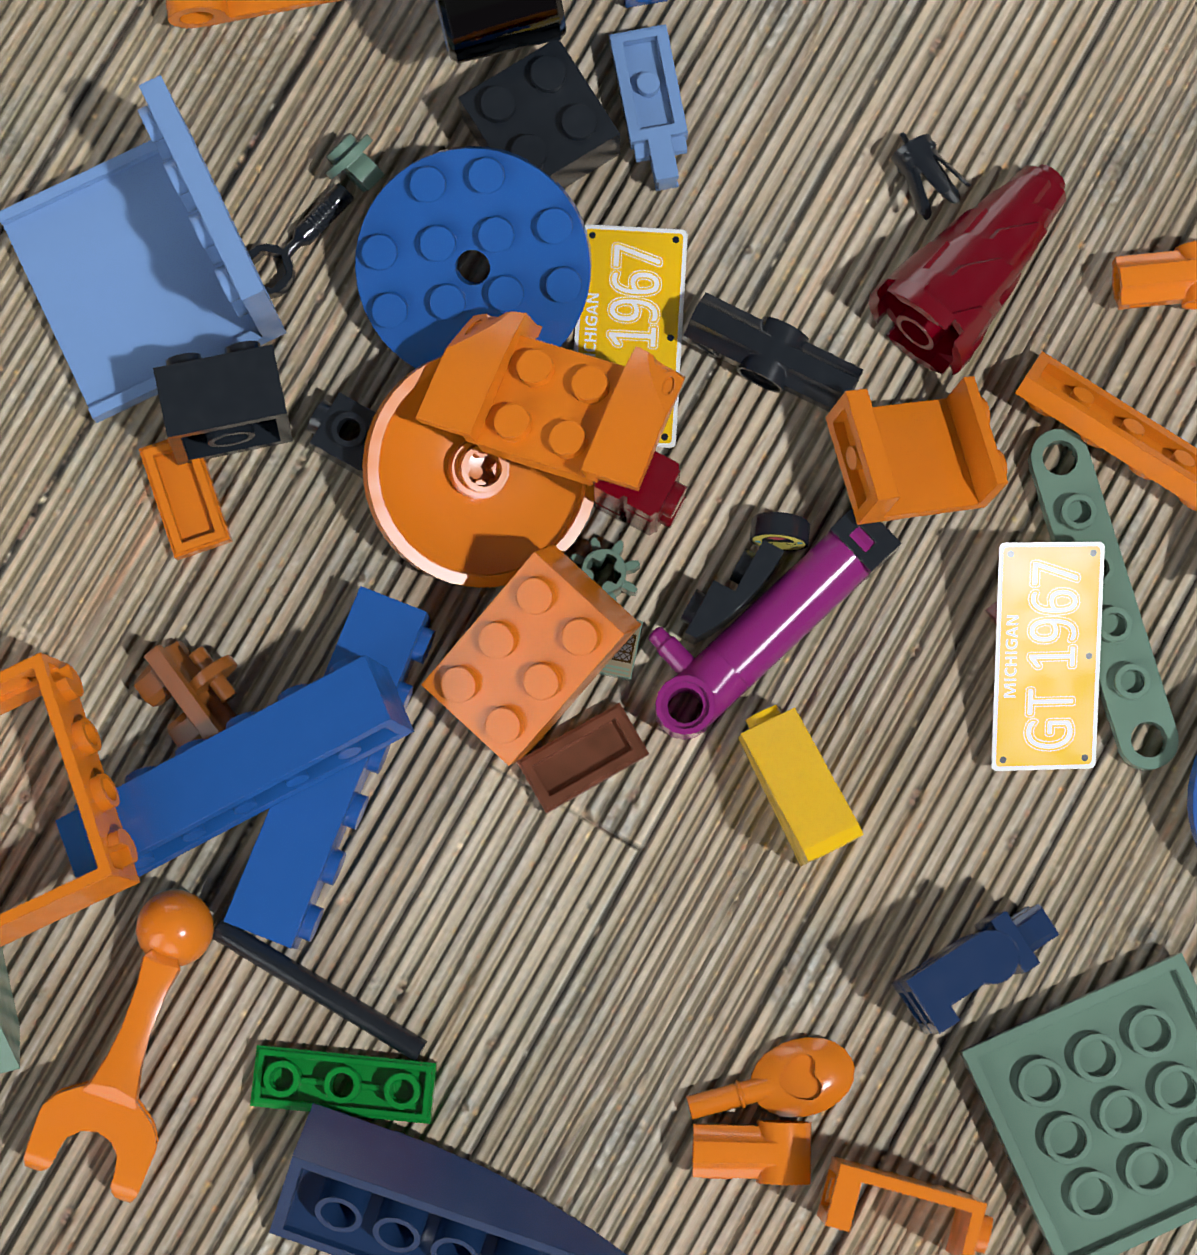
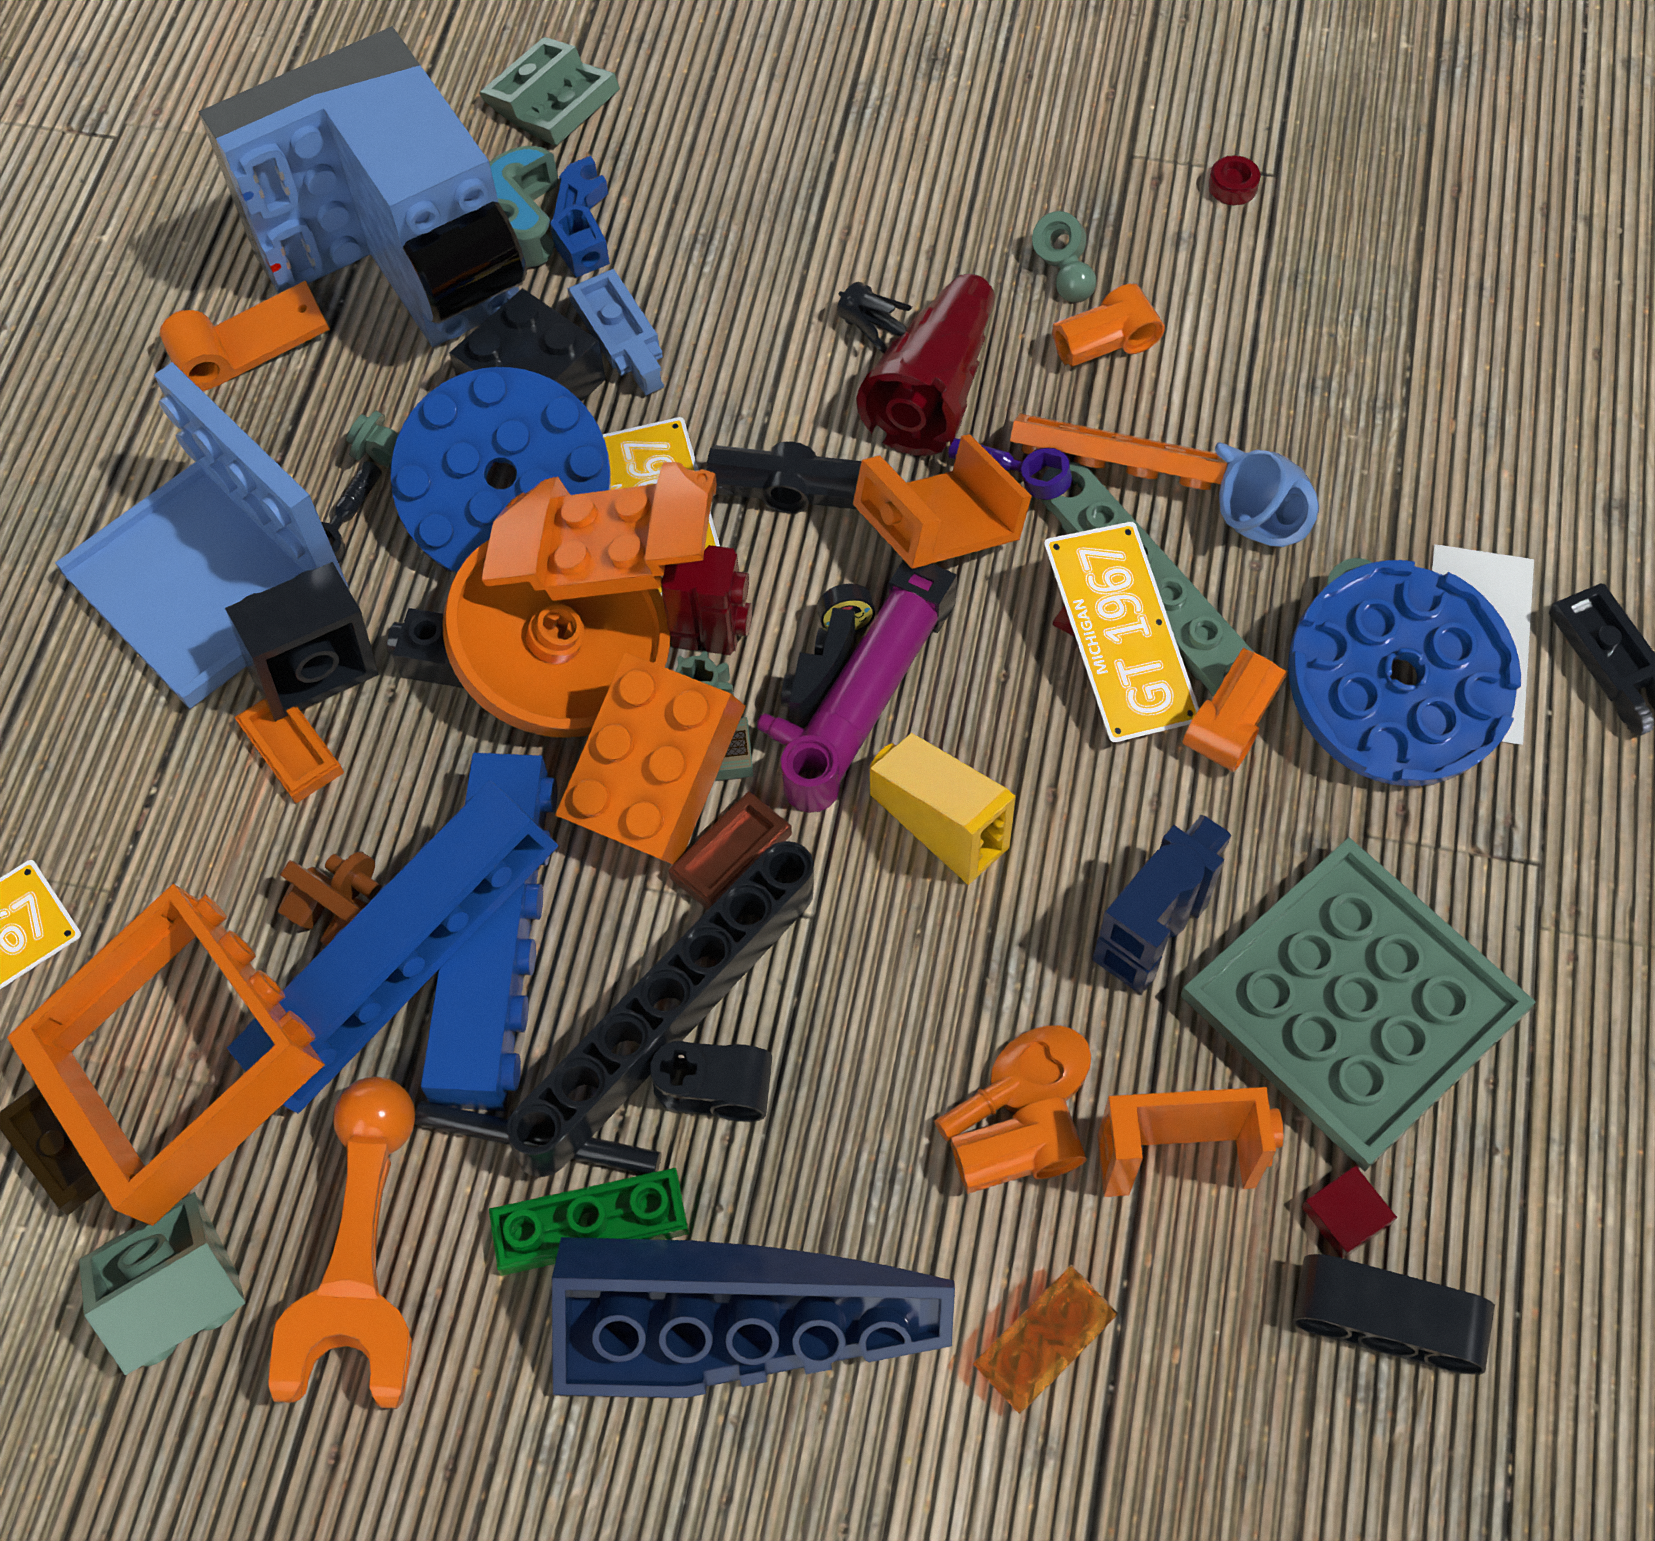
camera: 20 degrees left, 20 degrees down
(492, 883) = (638, 1021): none -> black beam
(506, 997) = (719, 1083): none -> black piece
(1002, 409) = (1032, 464): none -> dark purple piece
(1116, 789) = (1228, 723): none -> orange piece
(1164, 196) = (1075, 278): none -> sand green plate

